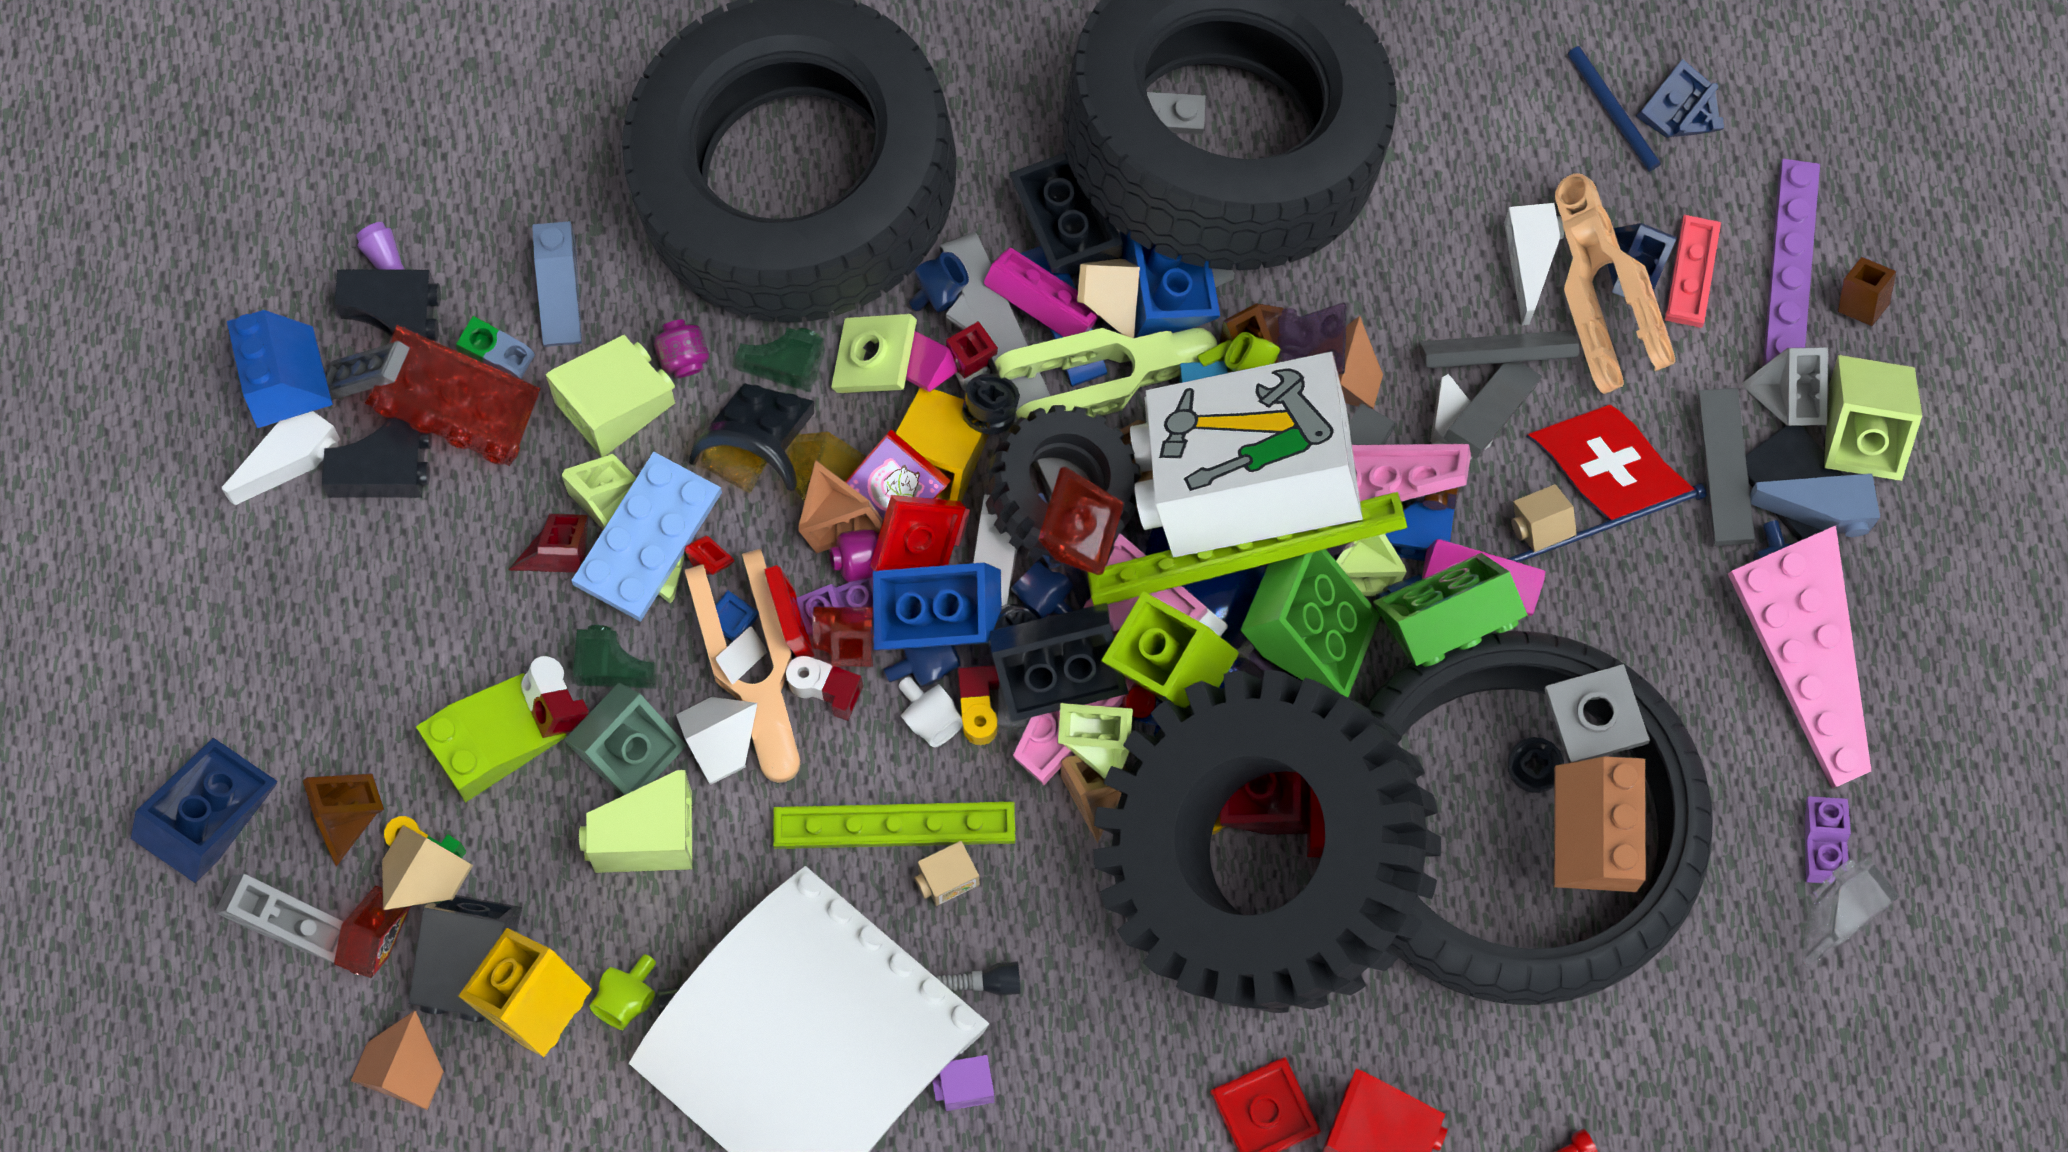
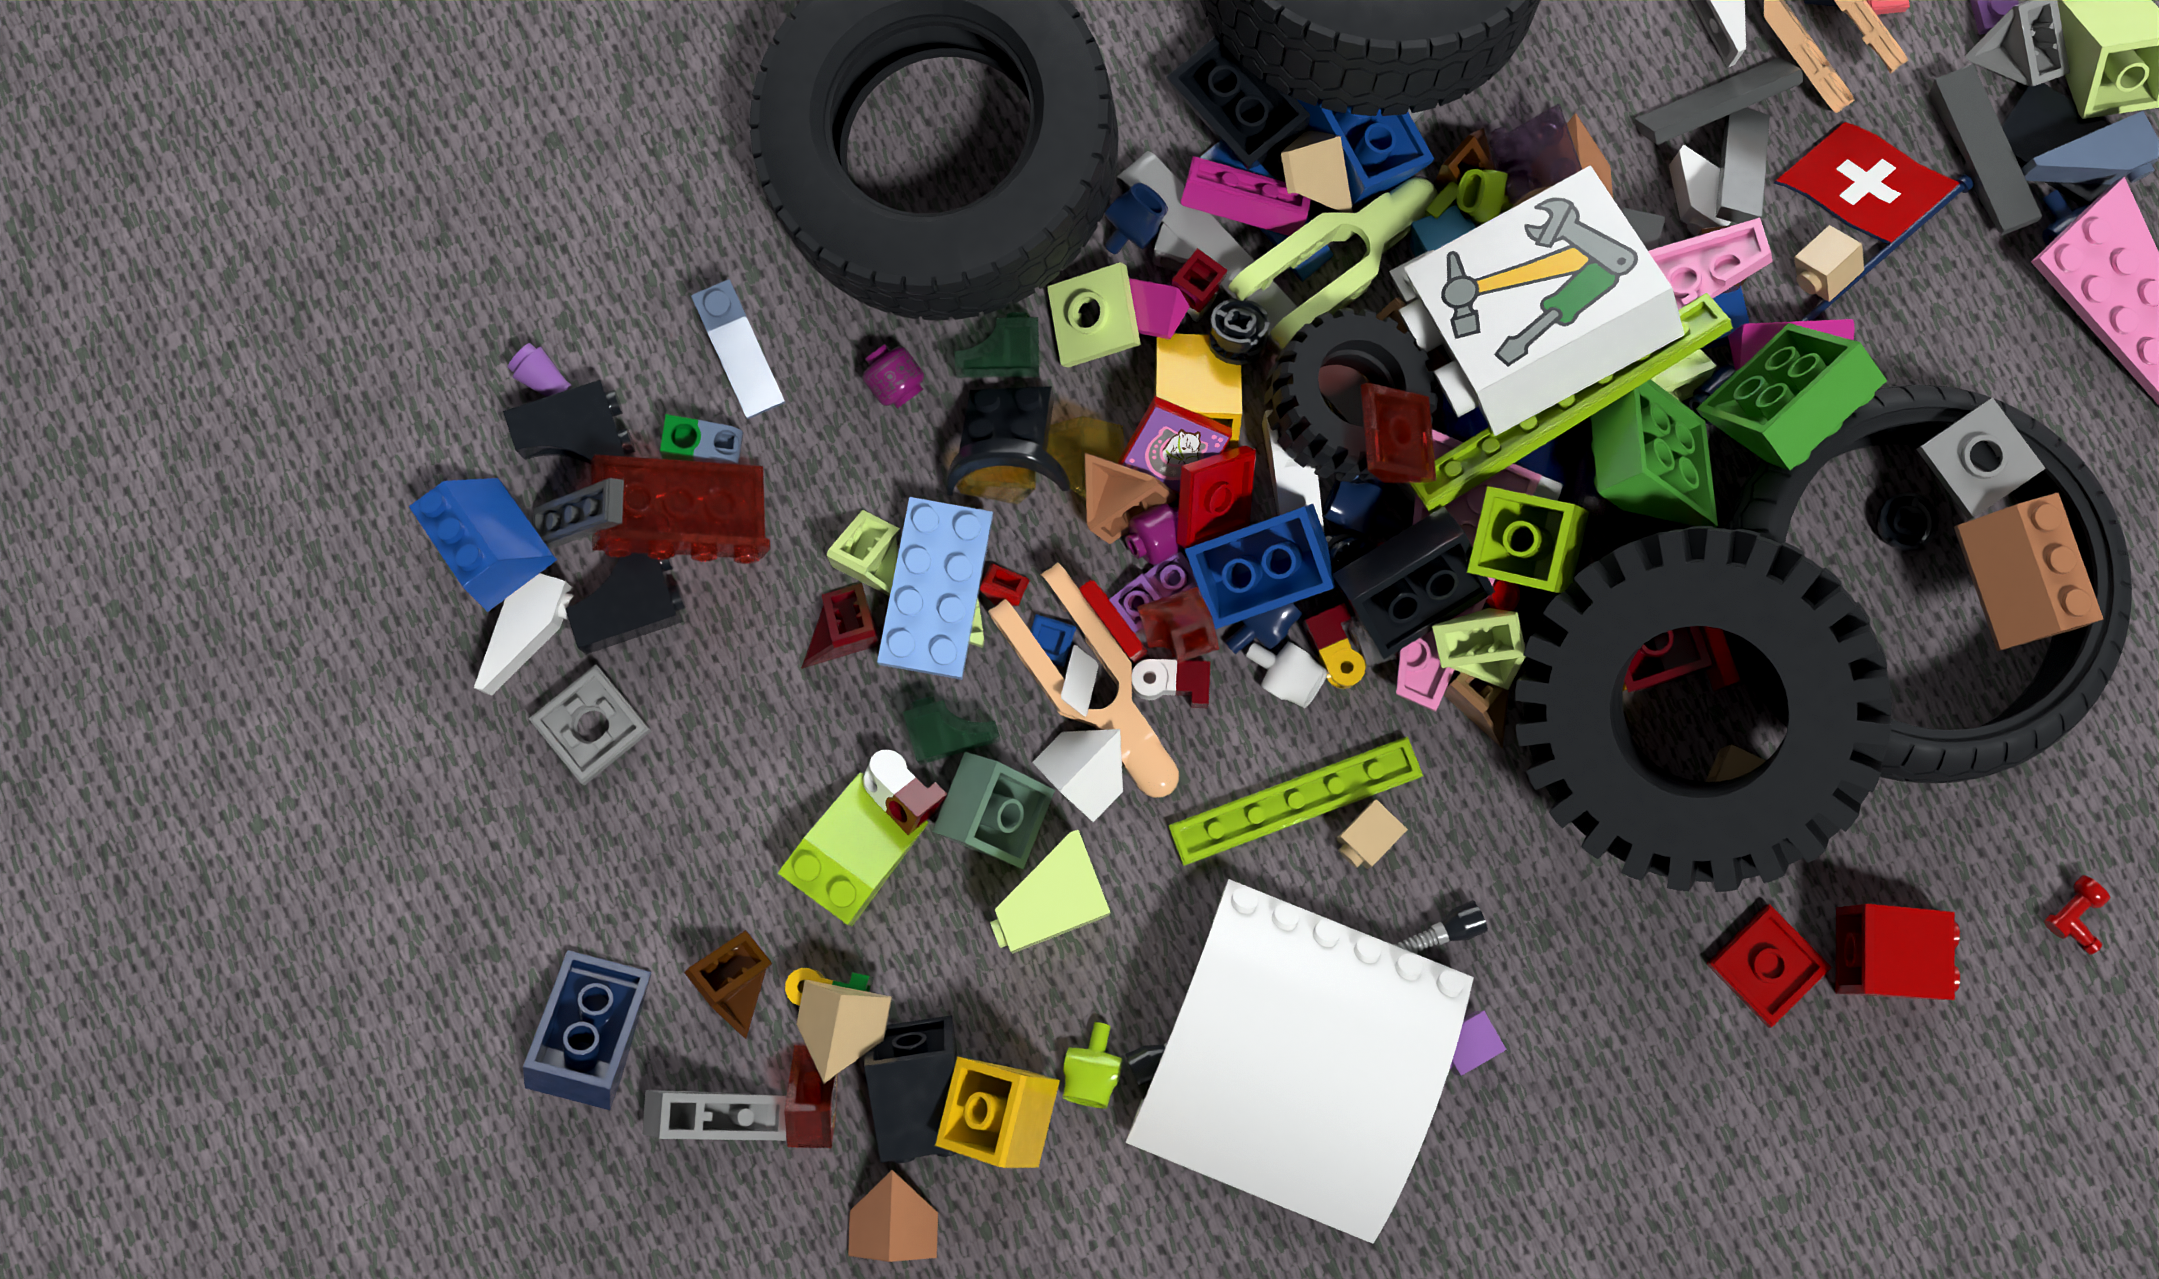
camera: 20 degrees left, 10 degrees up
(285, 540) = (560, 717): none -> light grey piece
(611, 392) = (840, 447): yellowish green slope -> none

